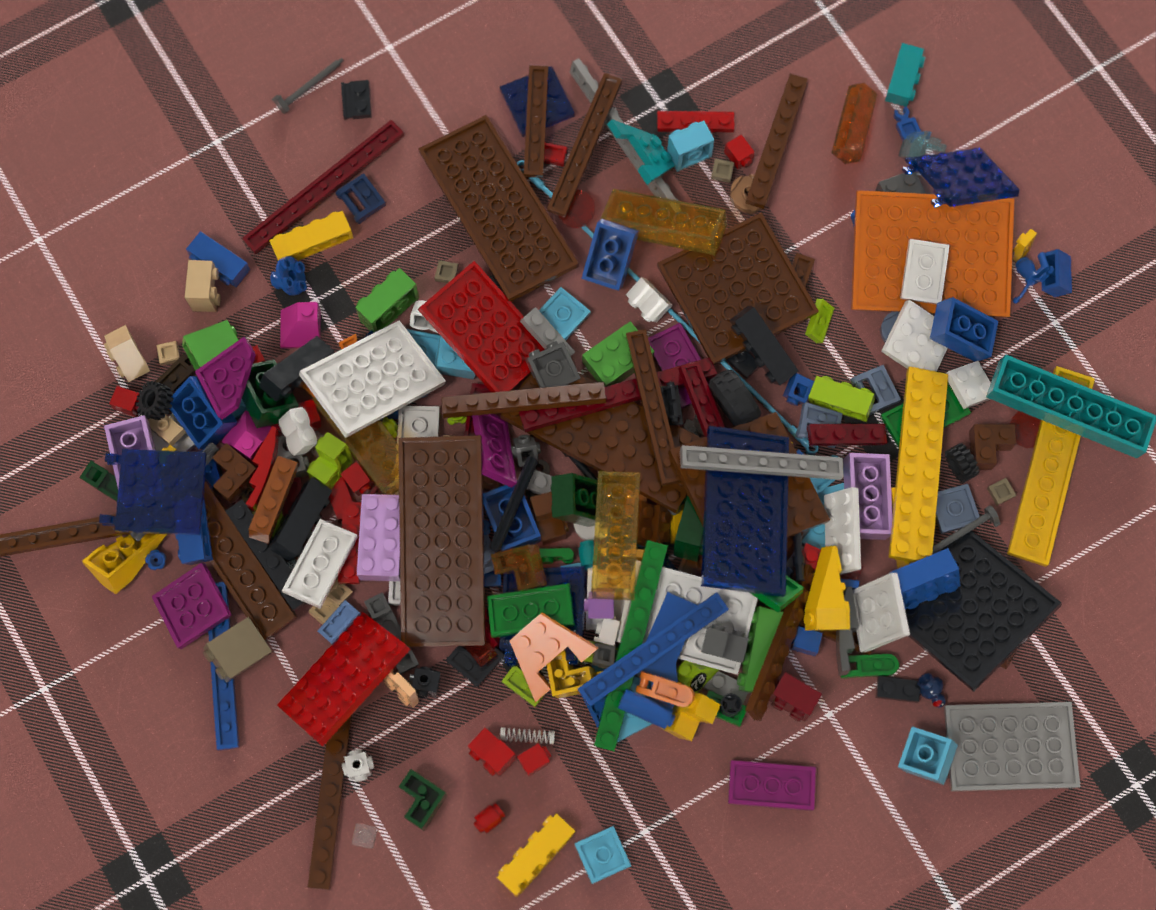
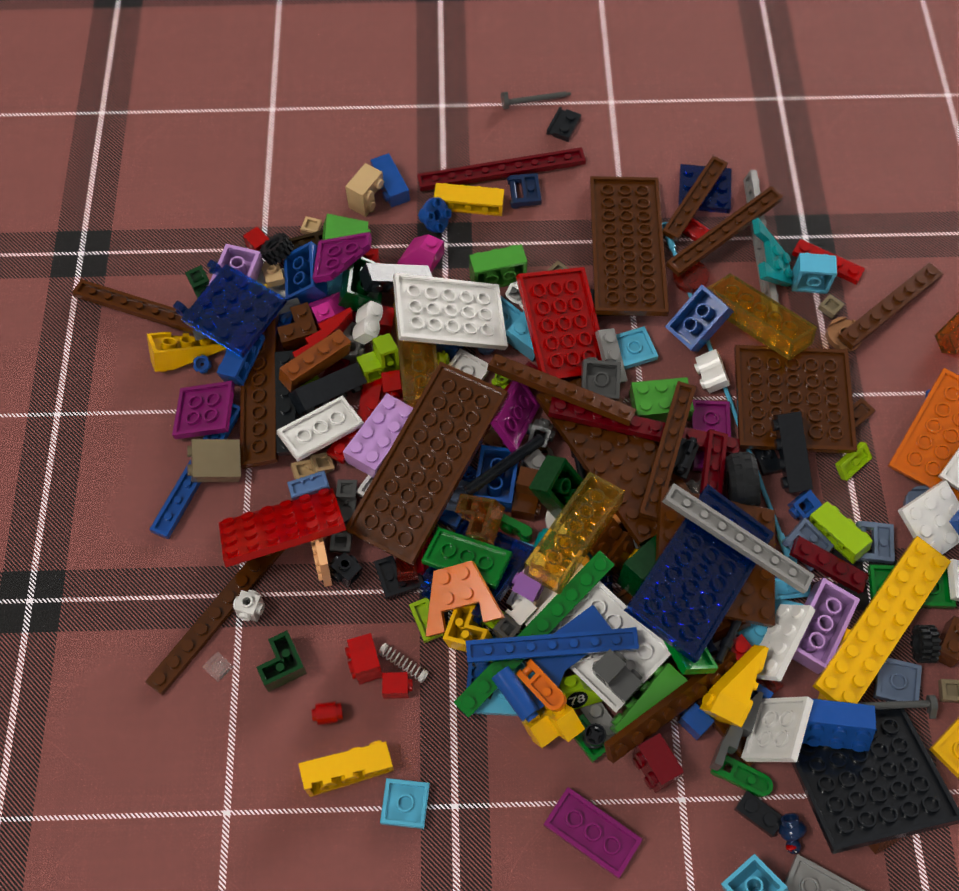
camera: 30 degrees right, 10 degrees down
(123, 349) = (278, 209): tan brick -> none
(739, 152) = (853, 298): red brick -> none

